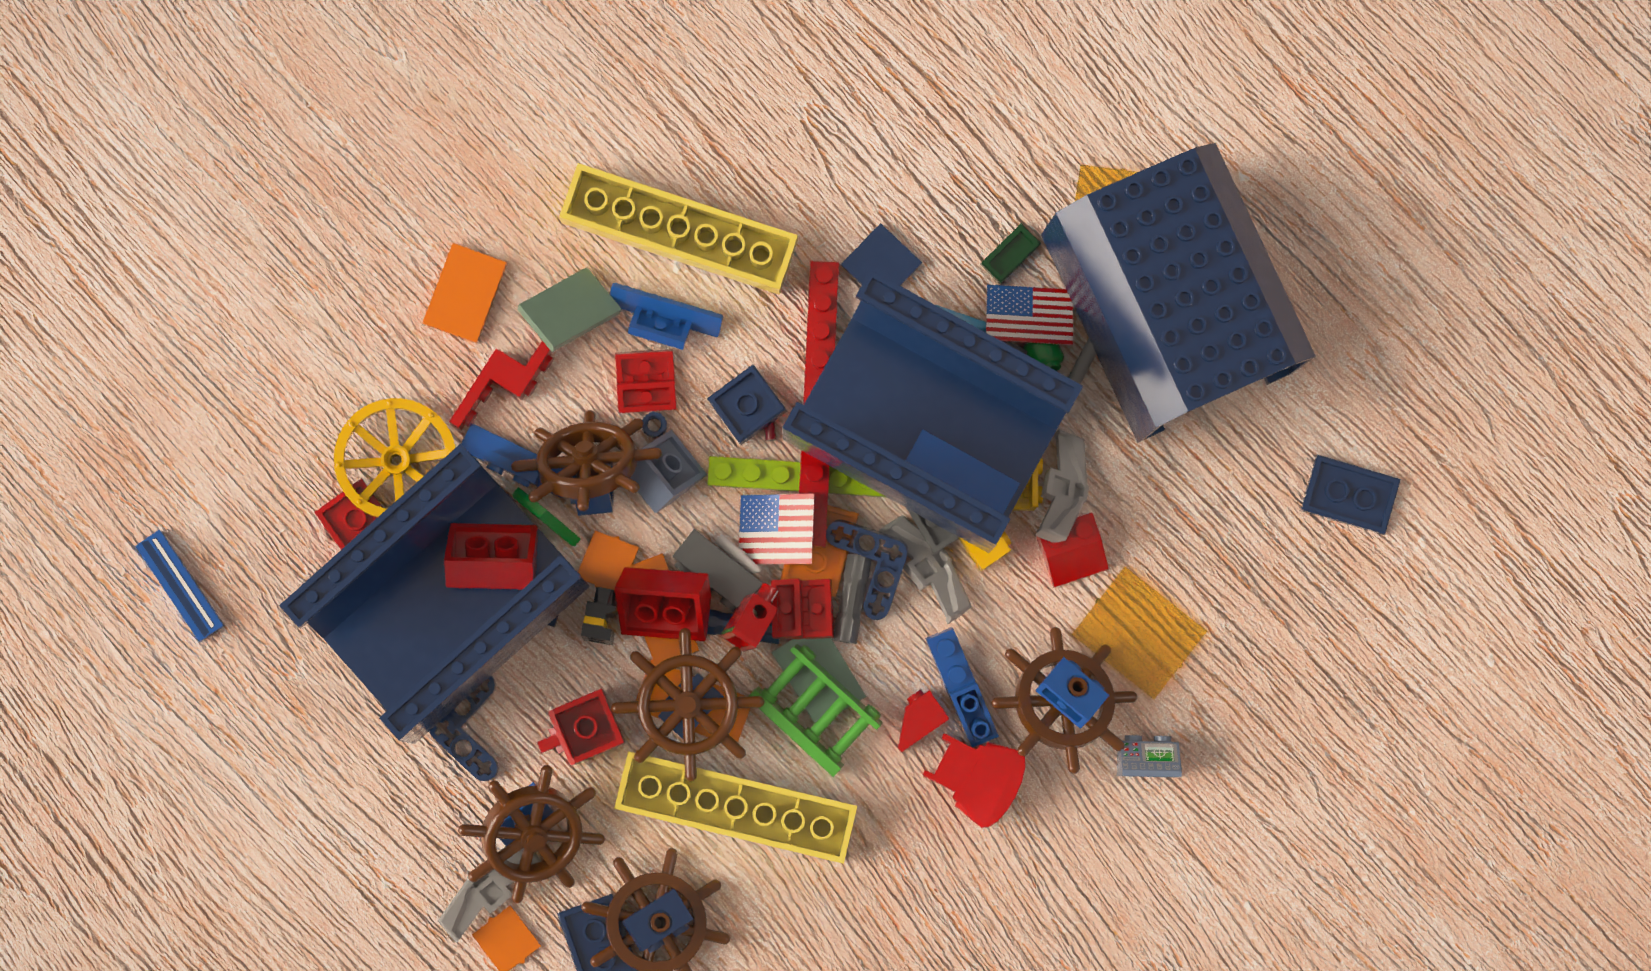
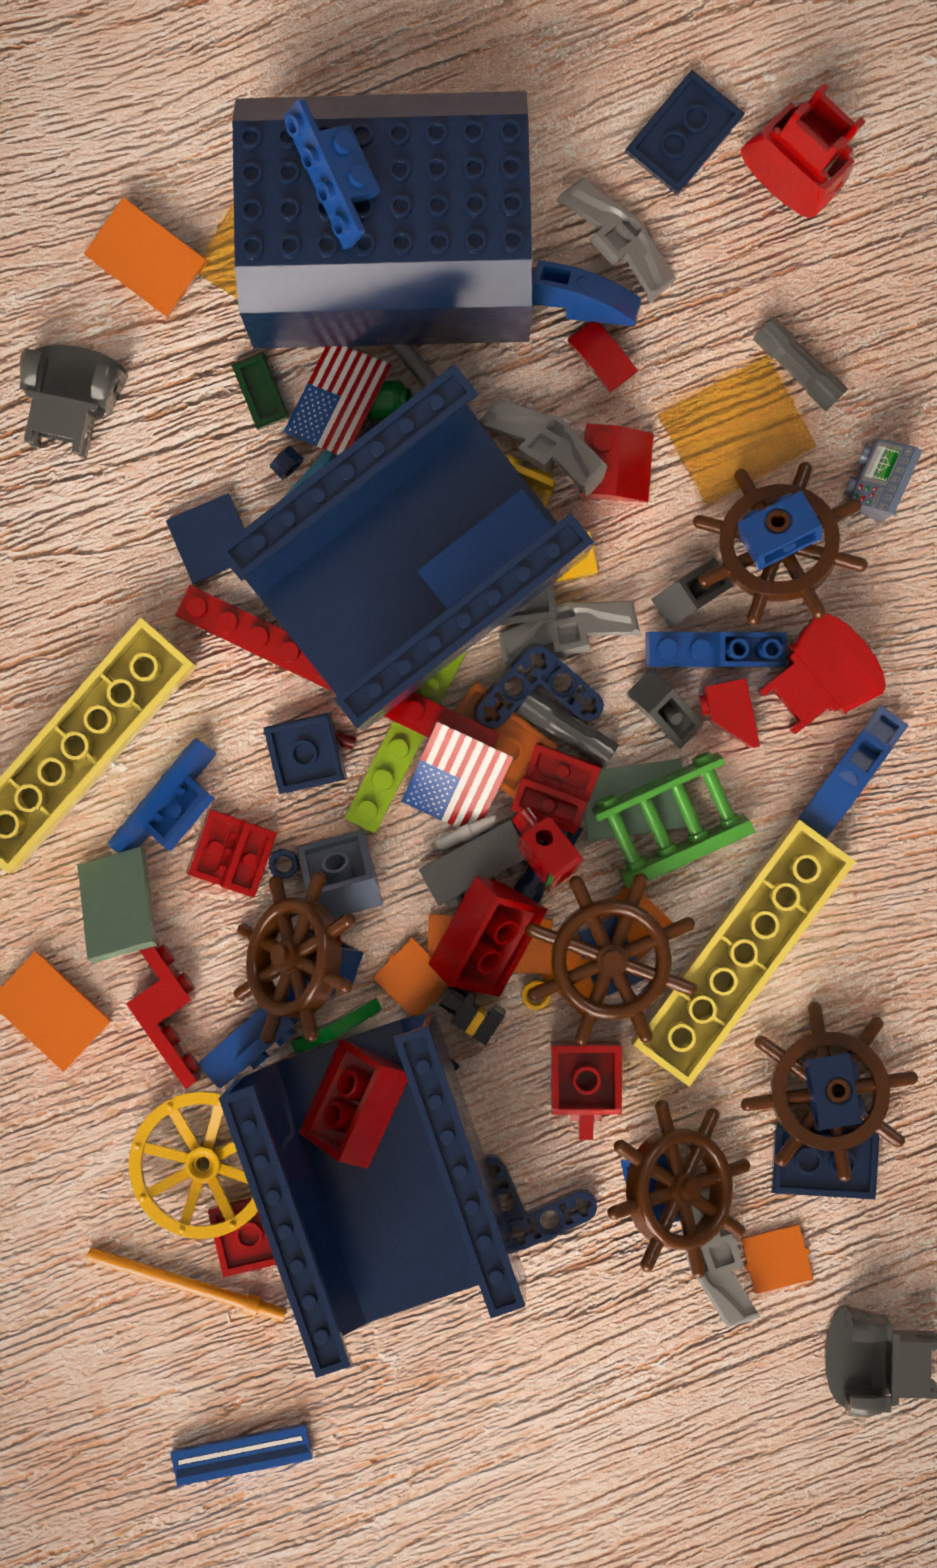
camera: 60 degrees left, 5 degrees up
(300, 543) = (250, 1304): none -> light orange bar
(625, 662) = (534, 1005): none -> yellow axle
(899, 668) = (665, 708): none -> dark grey slope
(912, 834) = (853, 772): none -> blue slope
(946, 109) = (68, 393): none -> dark grey piece
(964, 296) = (286, 462): none -> dark blue axle
(991, 647) = (687, 596): none -> dark grey slope
(1074, 124) = (145, 257): none -> orange tile
(1151, 504) = (602, 355): none -> red slope
(1190, 238) = (335, 168): none -> blue bracket
(1191, 465) = (583, 294): none -> blue slope
(1209, 663) = (782, 346): none -> dark grey axle
(1248, 478) = (620, 236): none -> light grey plate
(1371, 588) = (797, 148): none -> red piece

